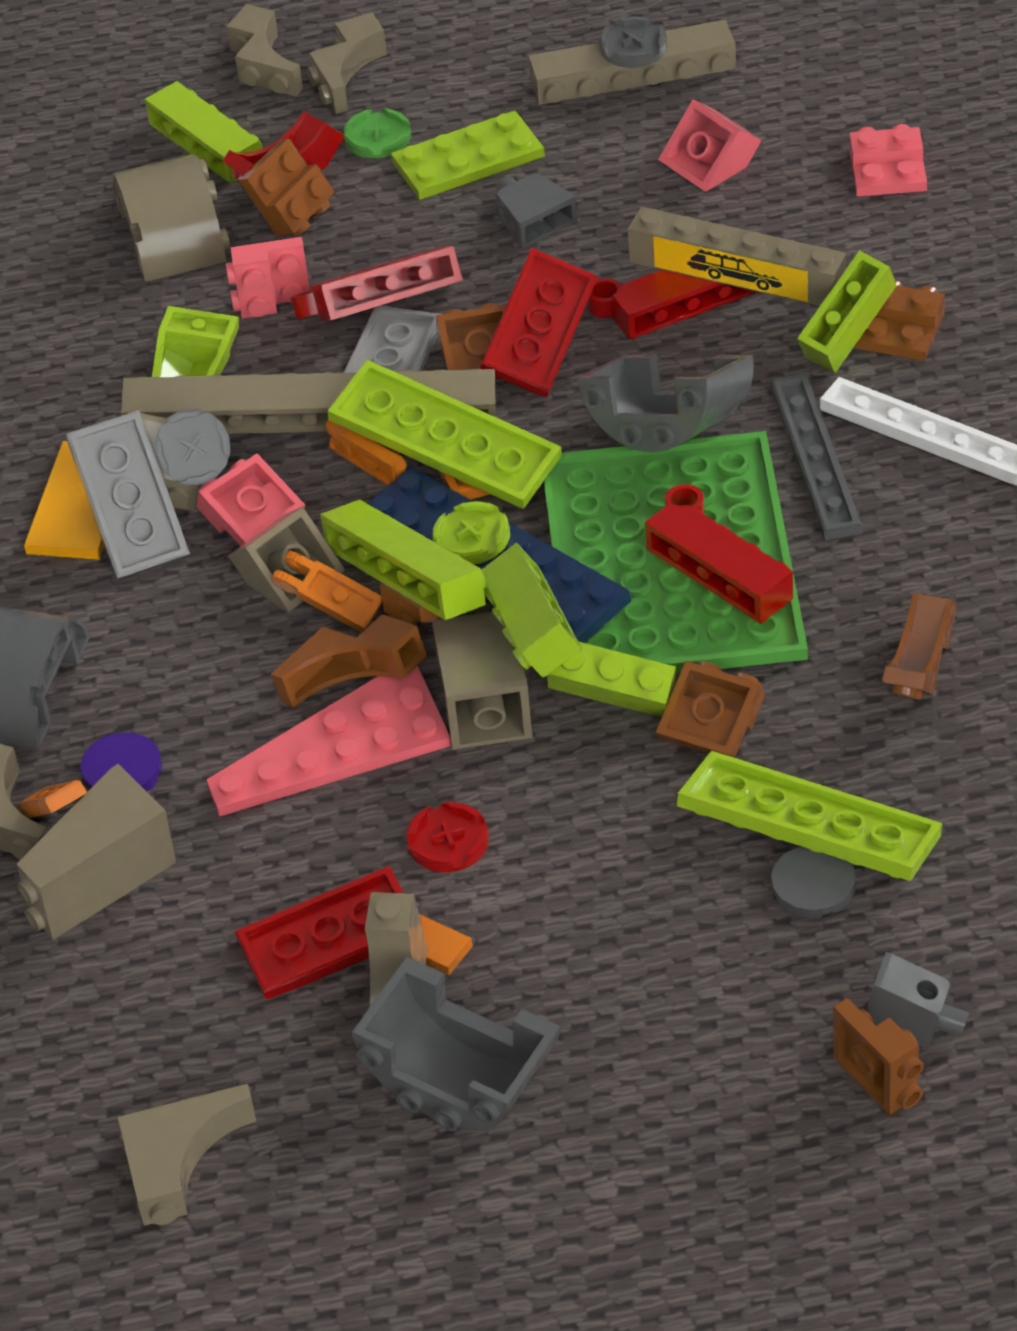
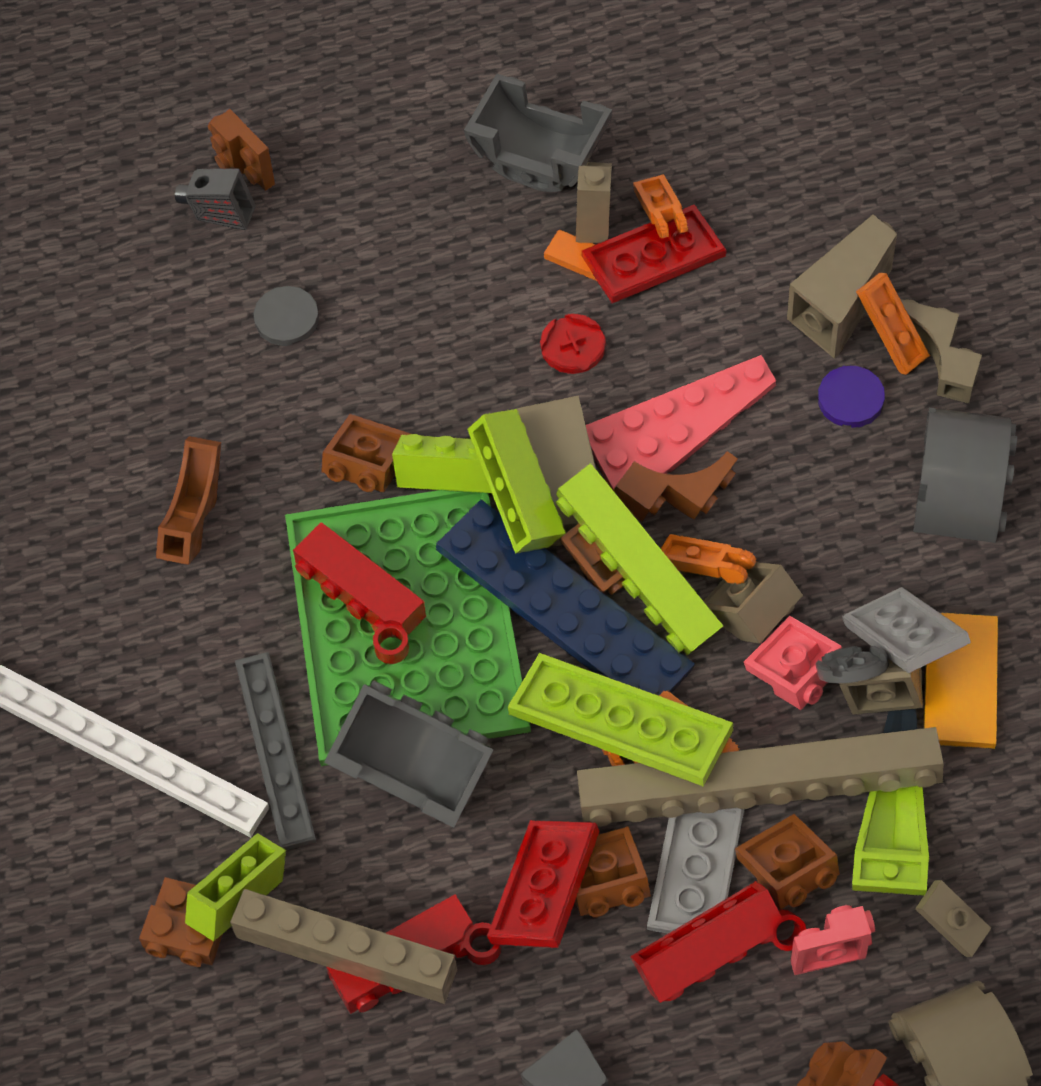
camera: 175 degrees right, 15 degrees up
(149, 303) = (953, 918): none -> dark tan plate
(171, 1139) = (741, 86): dark tan arch -> none
(296, 343) = (789, 861): none -> dark orange plate
(309, 977) = (660, 204): none -> orange hinge
(473, 531) = (581, 604): lime tile -> none
(810, 815) = (287, 358): lime plate -> none

